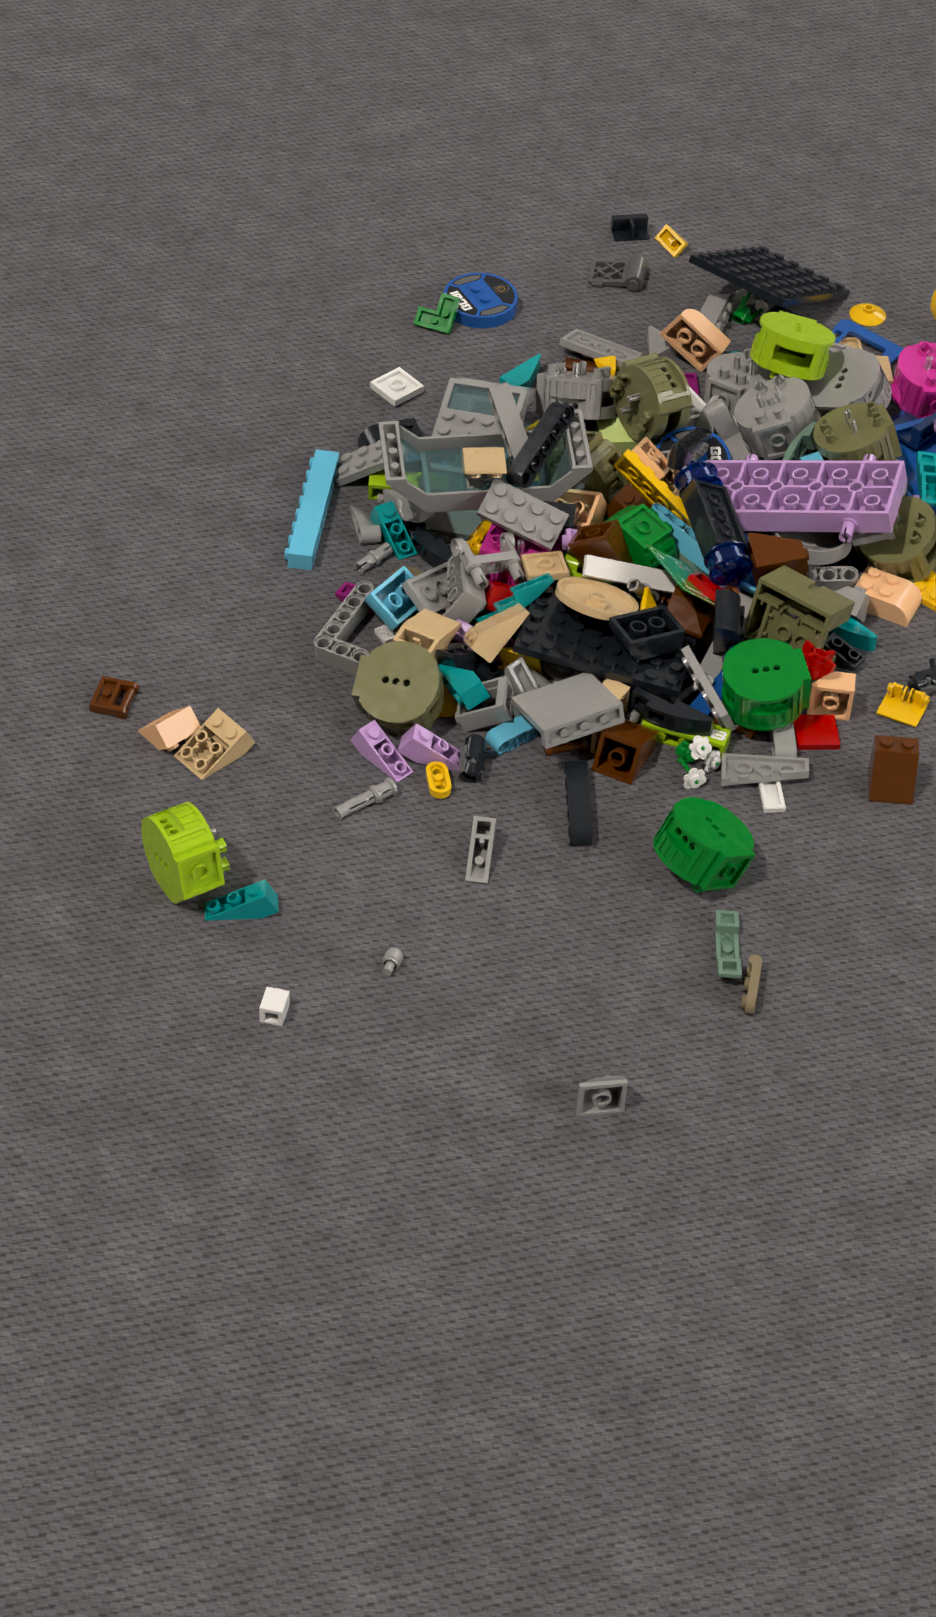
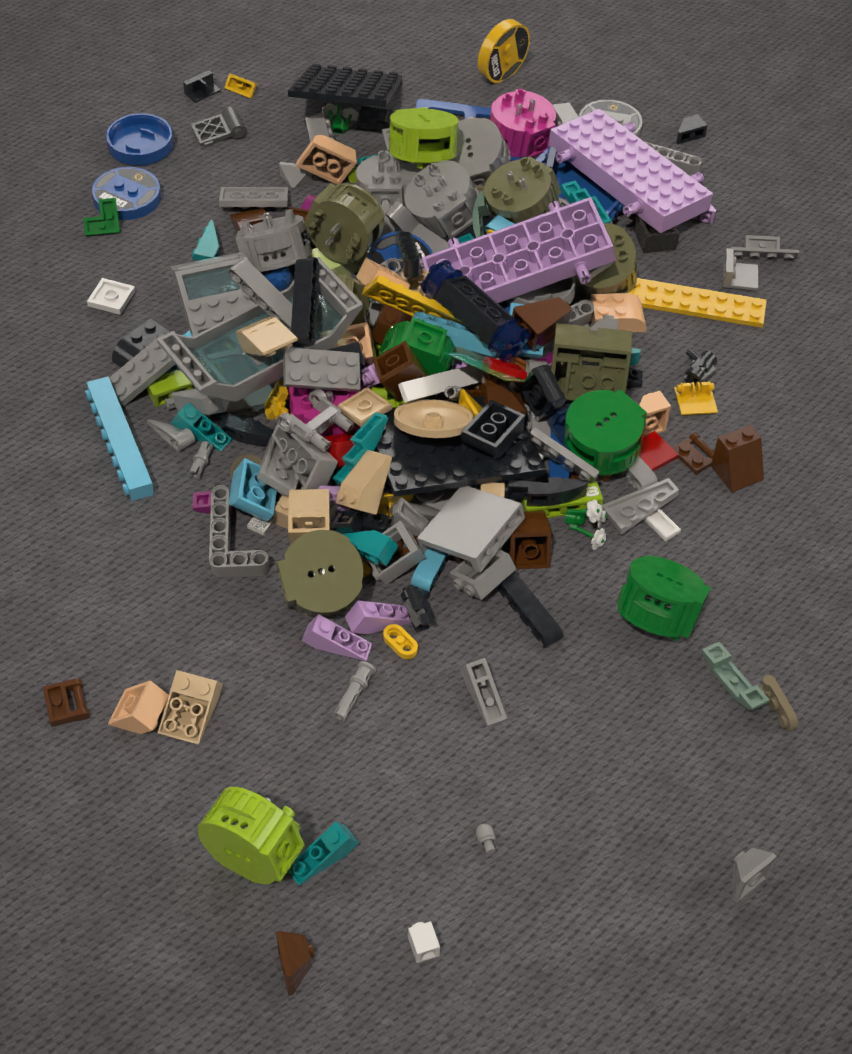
camera: 30 degrees left, 5 degrees up
(155, 963) = (294, 958): none -> reddish brown slope
(530, 255) = (139, 139): none -> blue piece
(556, 758) = (499, 570): none -> light grey window
(609, 361) = (274, 208): yellow slope -> none
(818, 661) = (632, 390): red brick -> none
(853, 751) = (691, 456): none -> reddish brown plate
(867, 314) = (426, 89): yellow dish -> none

